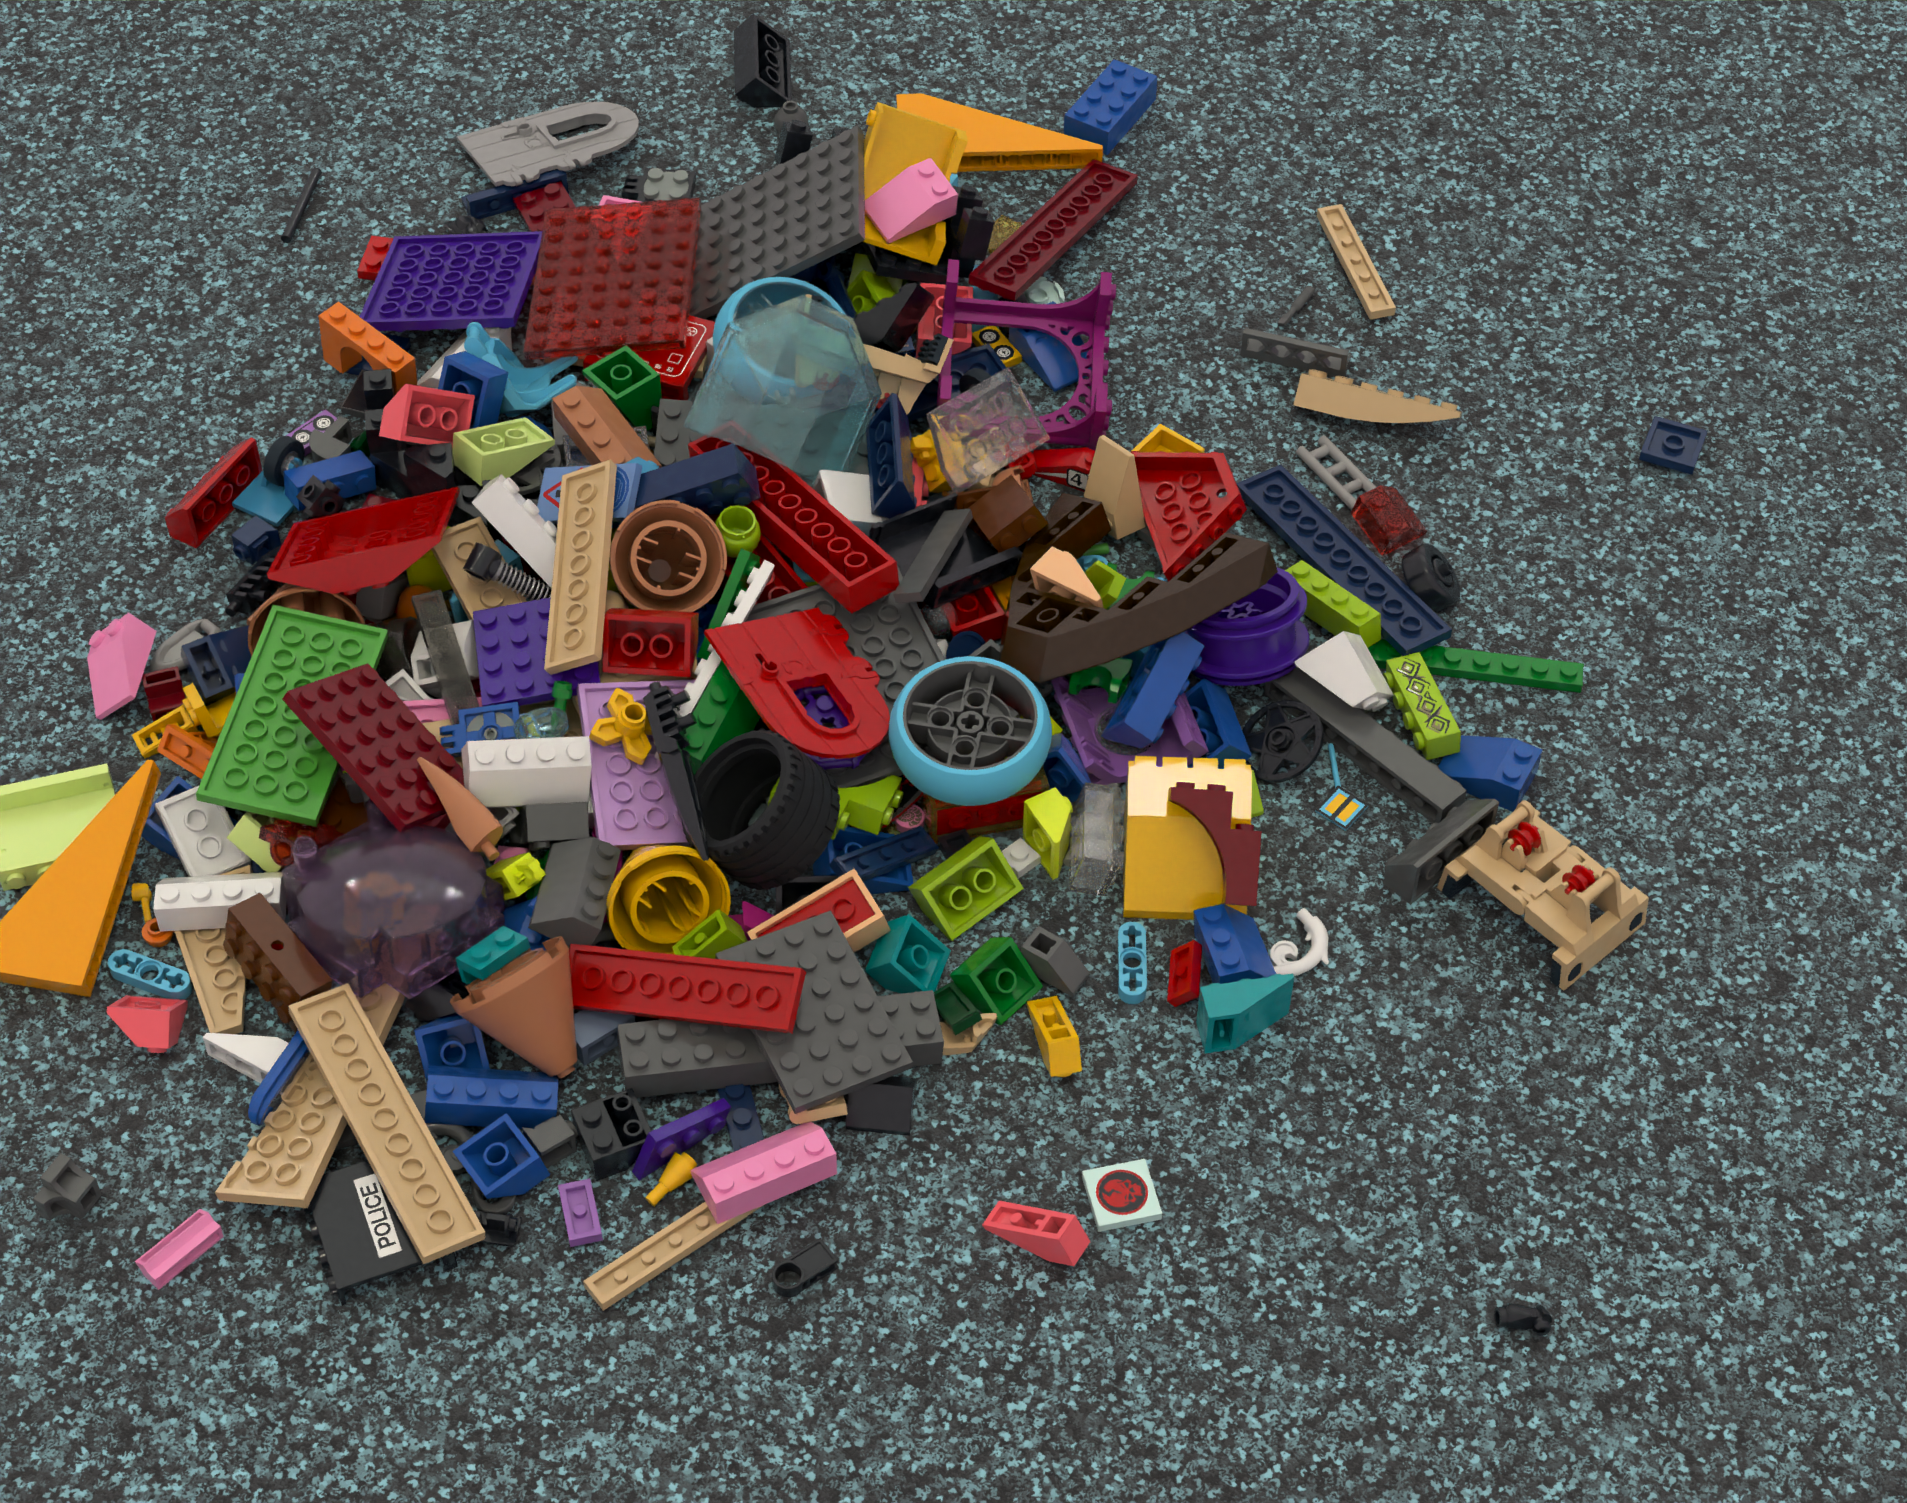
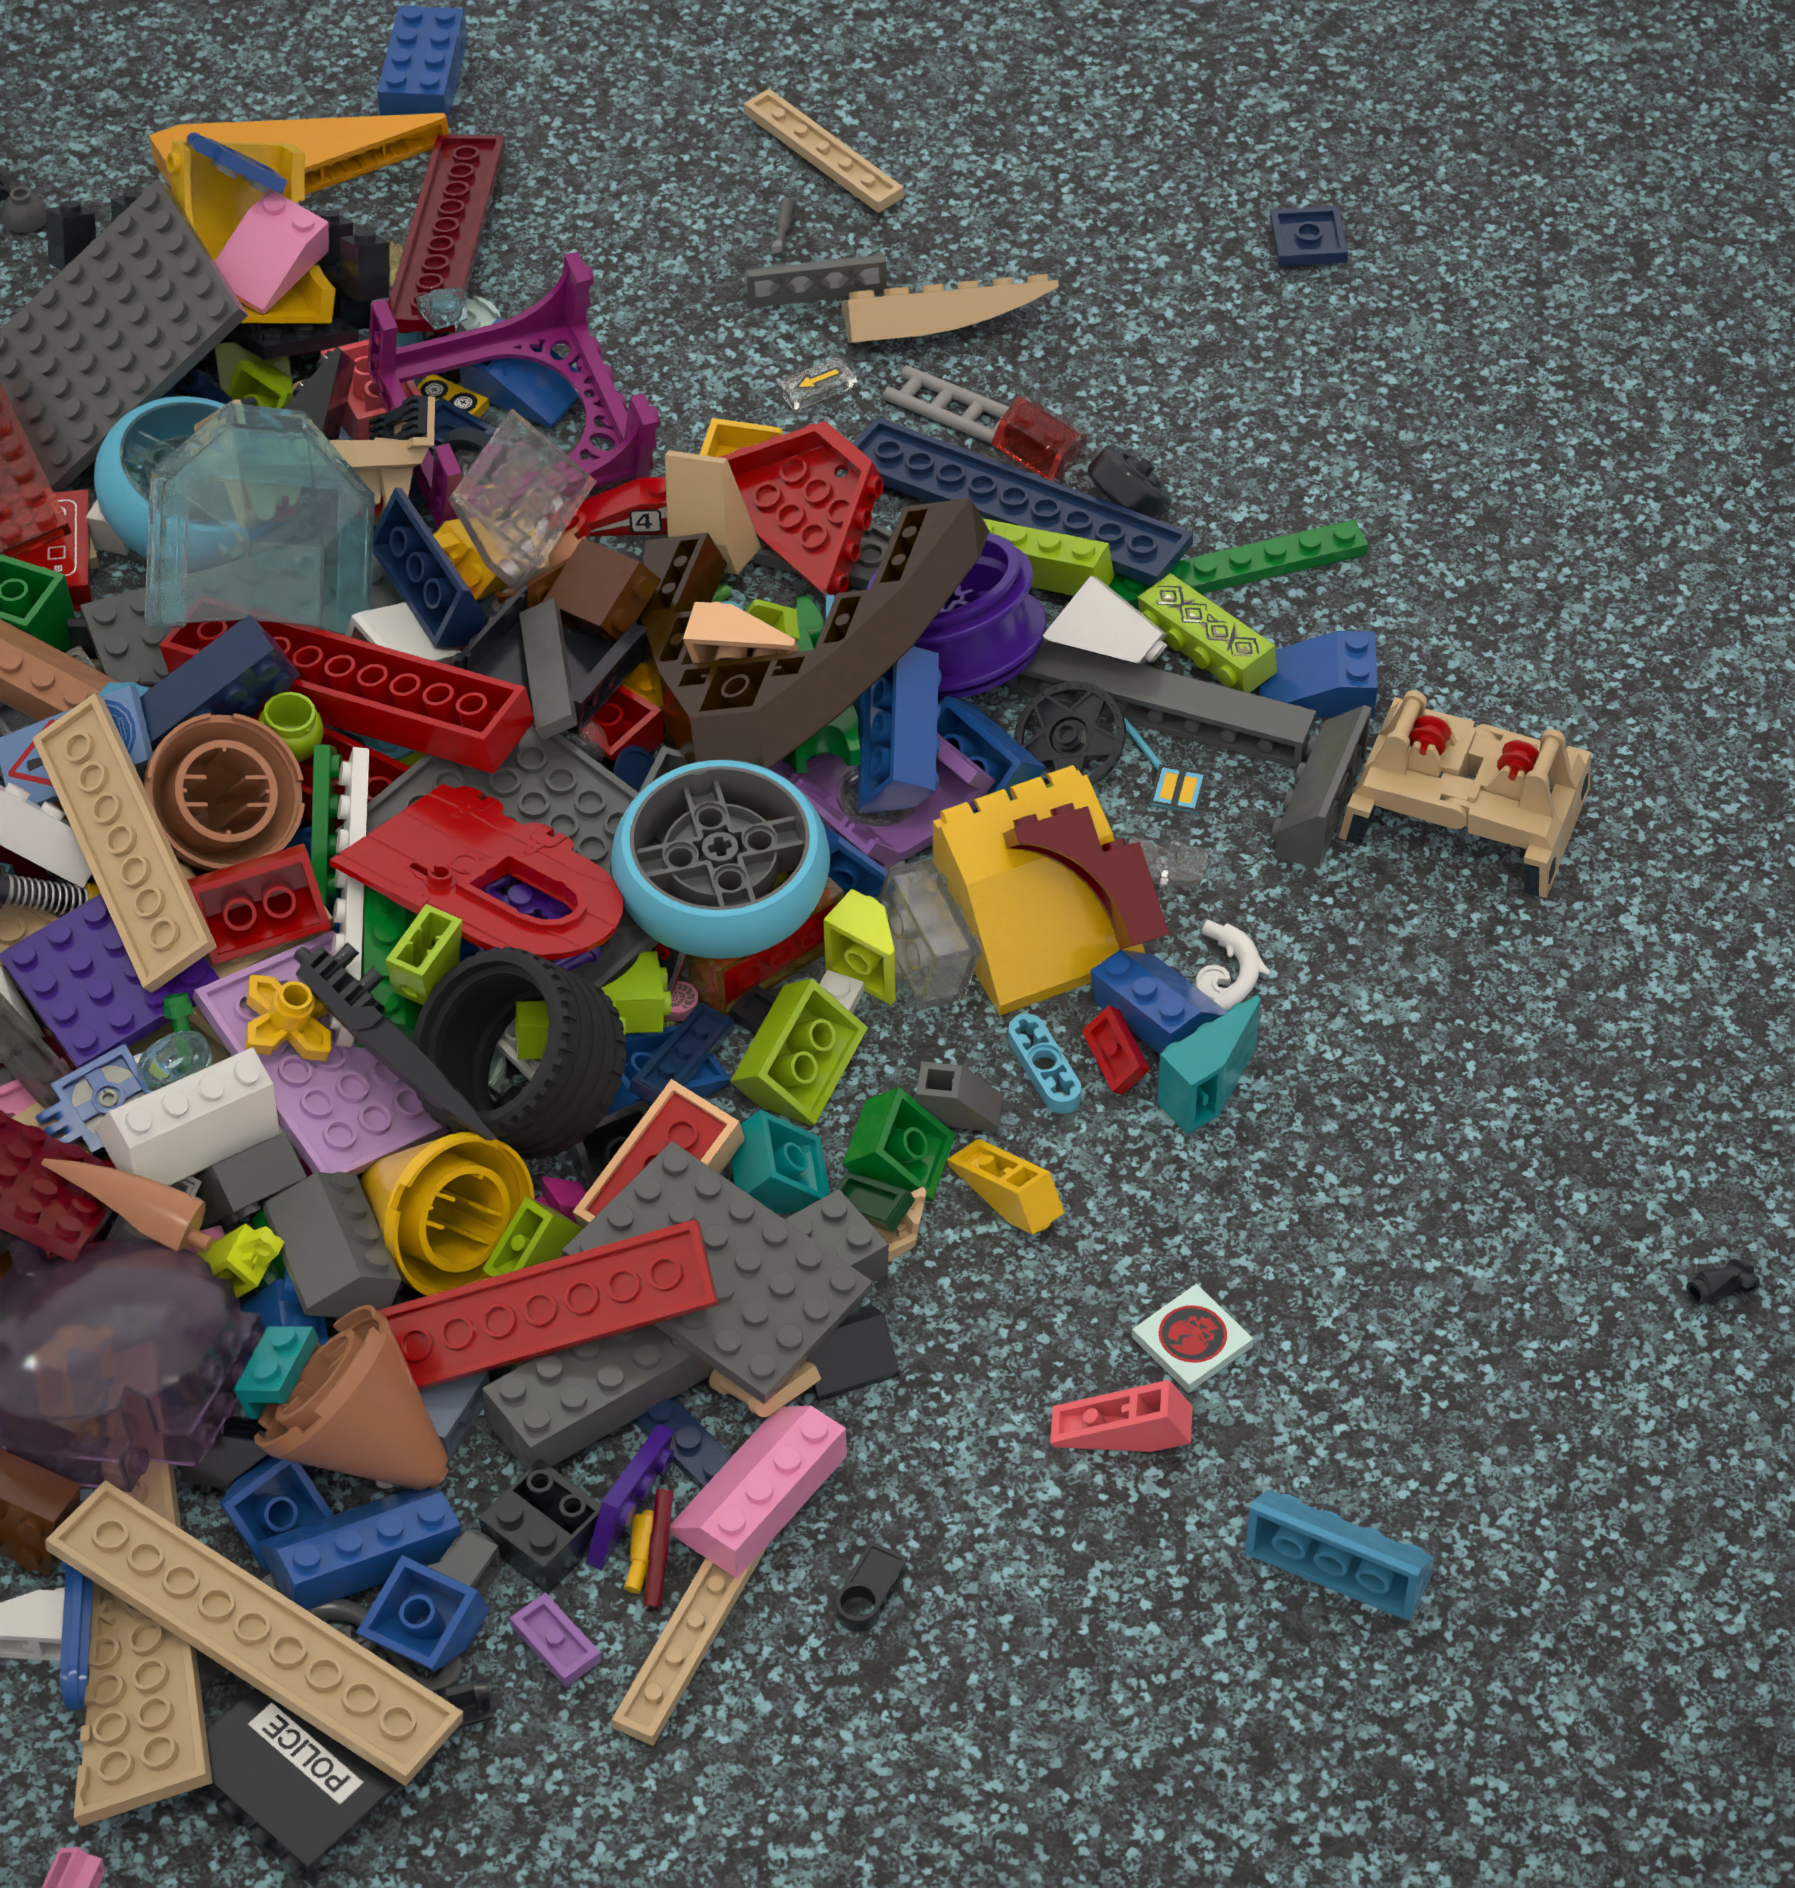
camera: 25 degrees left, 0 degrees up
(677, 1181) = (658, 1547): none -> dark red piece
(729, 716) = (417, 964): none -> lime torso
(911, 130) = (235, 163): none -> blue piece
(1011, 280) = (443, 307): none -> clear light blue bracket
(1130, 1385) = (1338, 1554): none -> dark azure slope
(1255, 426) = (817, 383): none -> clear tile
(1297, 857) = (1174, 865): none -> clear slope

